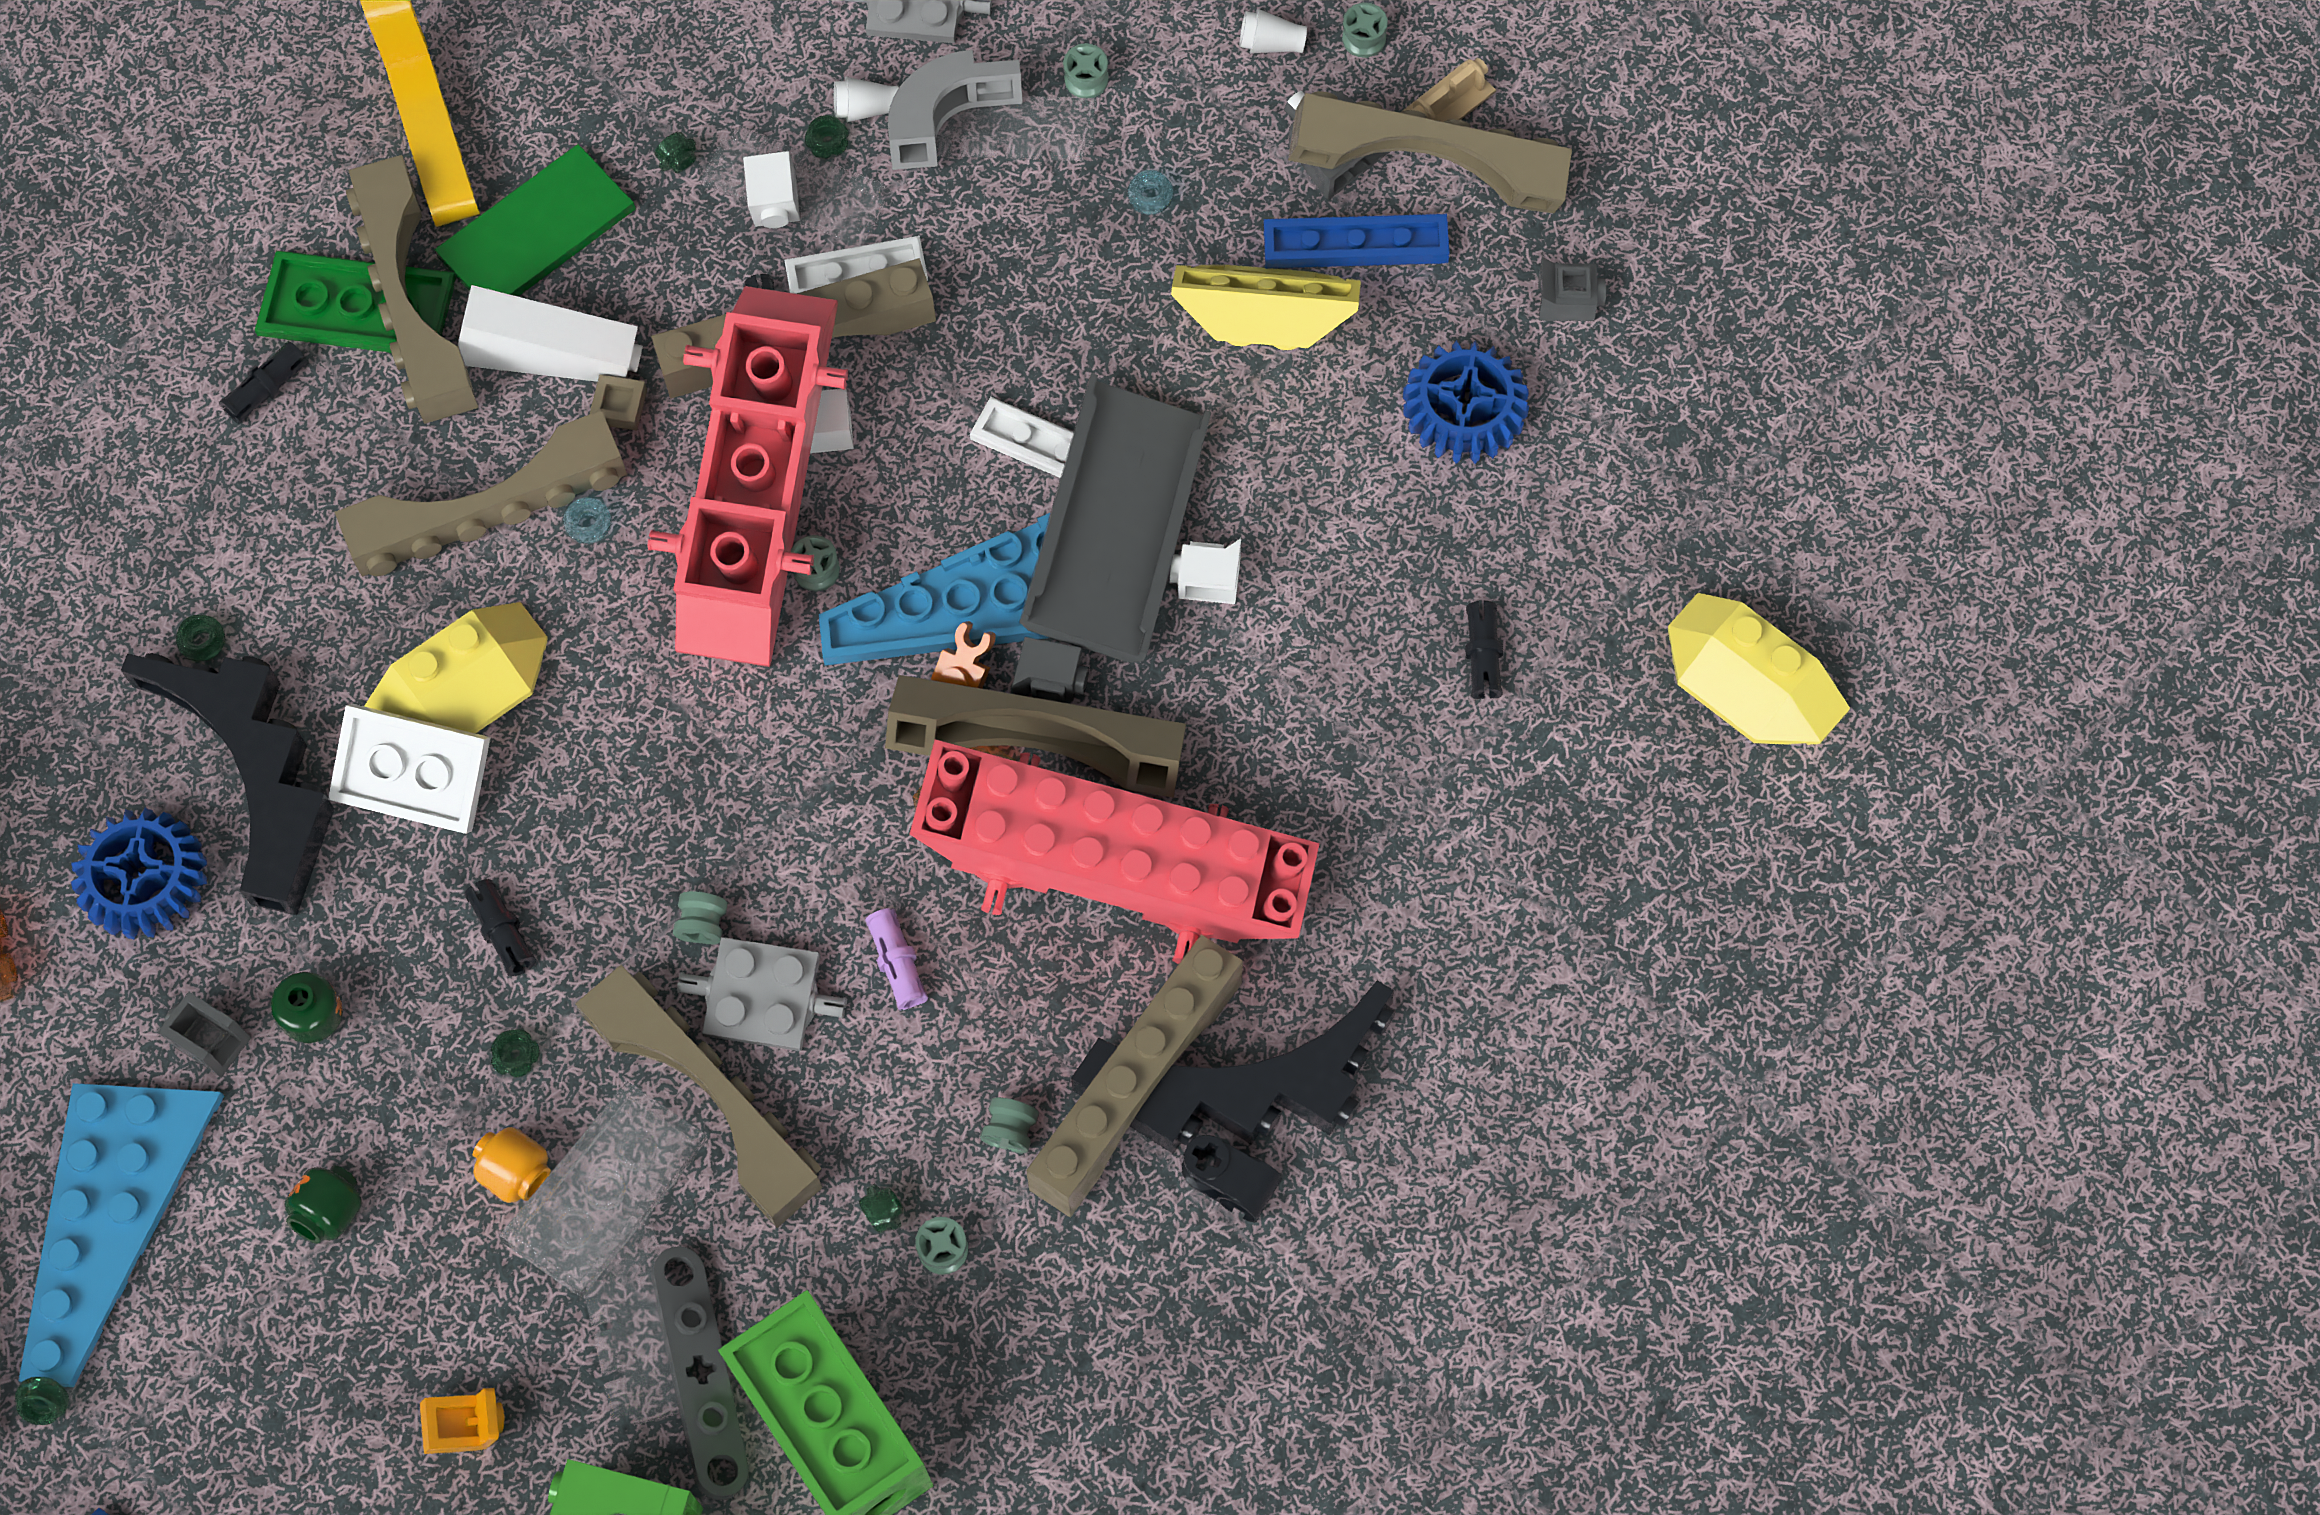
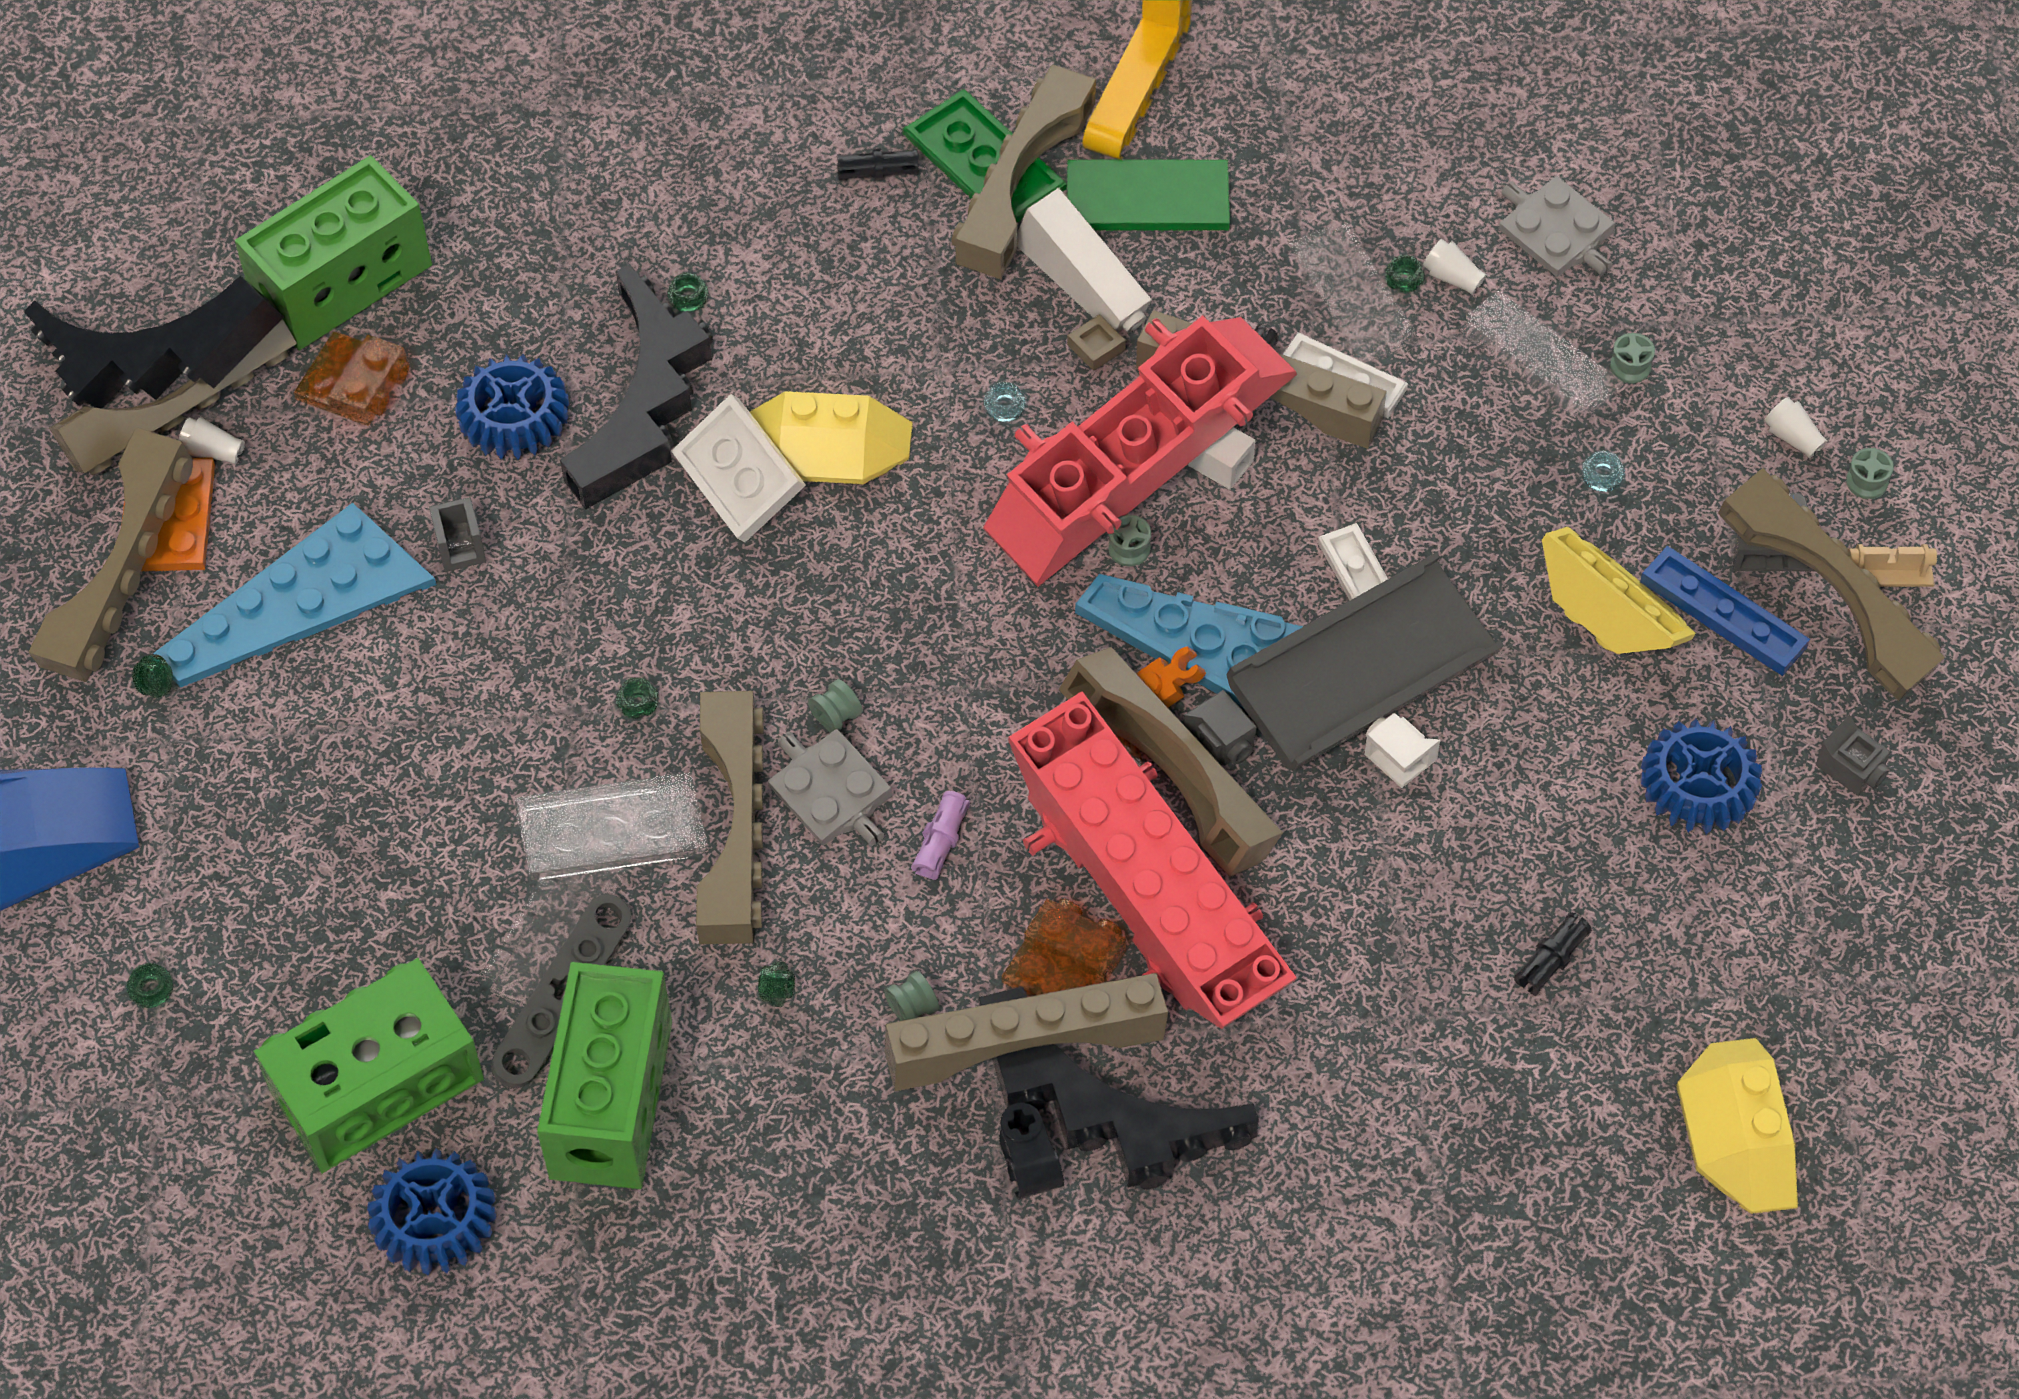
camera: 40 degrees right, 10 degrees down
(306, 1007) = (534, 565): dark green head -> none
(323, 1203) = (430, 694): dark green head -> none
(393, 530) = (1026, 356): dark tan arch -> none
(461, 1422) = (384, 896): light orange bracket -> none
(500, 927) = (702, 613): black pin -> none
(510, 1164) = (566, 761): light orange head -> none
(676, 152) = (1289, 211): clear green plate -> none
(771, 189) = (1330, 278): white brick -> none
(938, 1232) = (791, 1029): sand green wheel -> none
(939, 92) = (1504, 296): light grey arch -> none
(1099, 979) = (1064, 951): none -> clear orange plate

